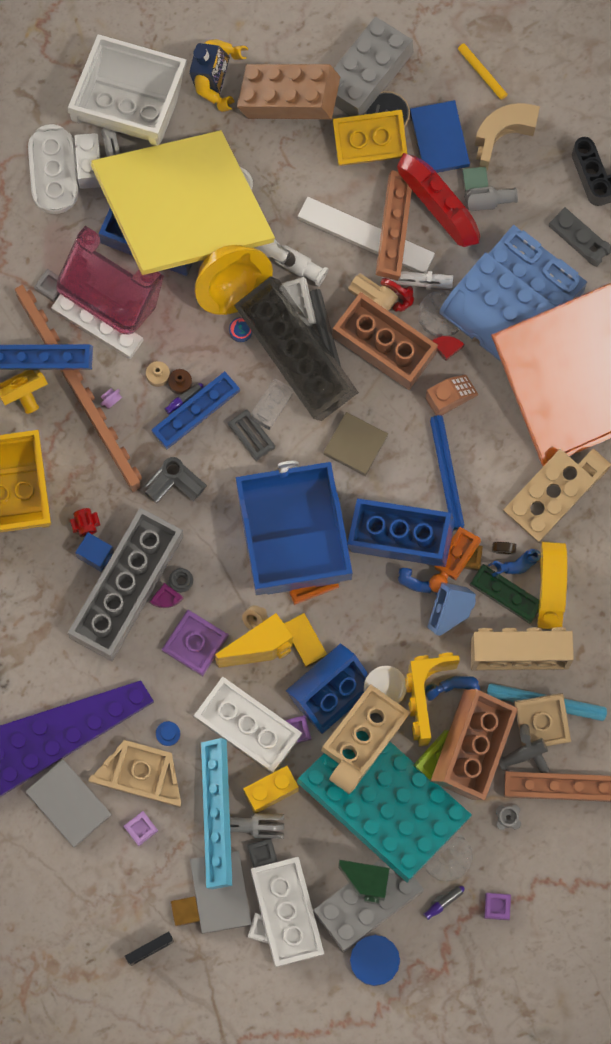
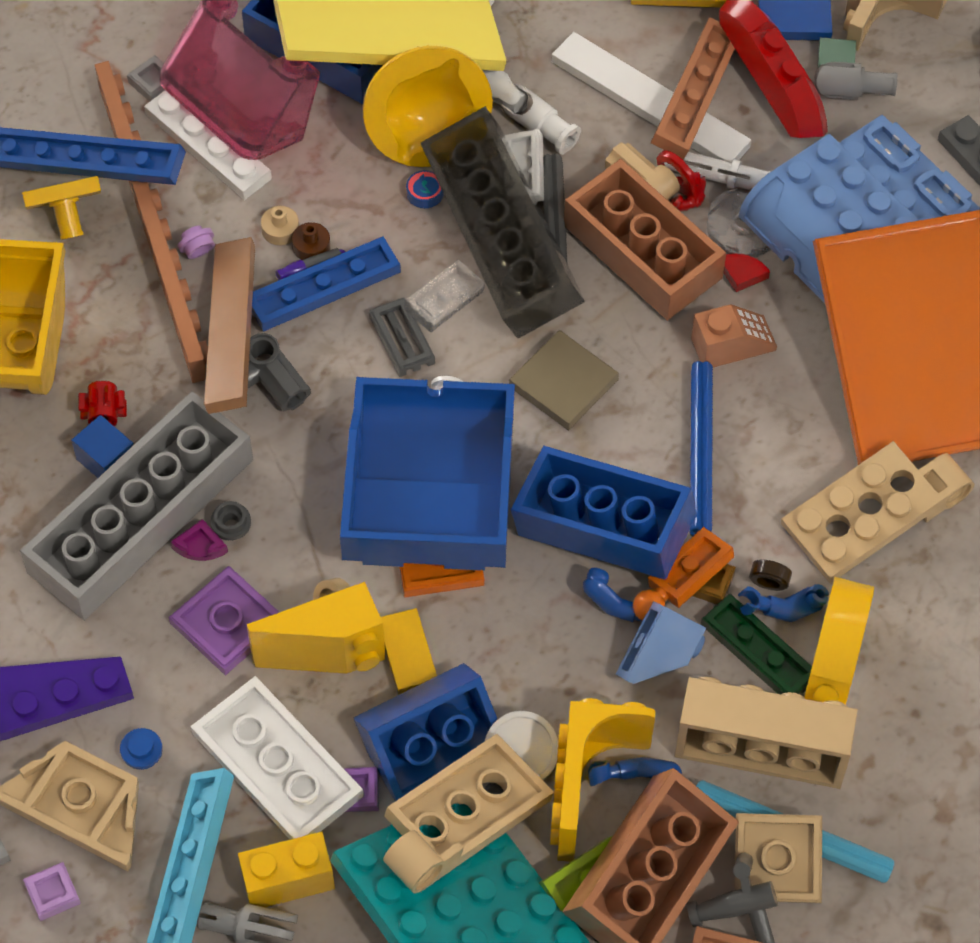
camera: 15 degrees right, 15 degrees down
(149, 455) = (230, 326): none -> medium nougat tile

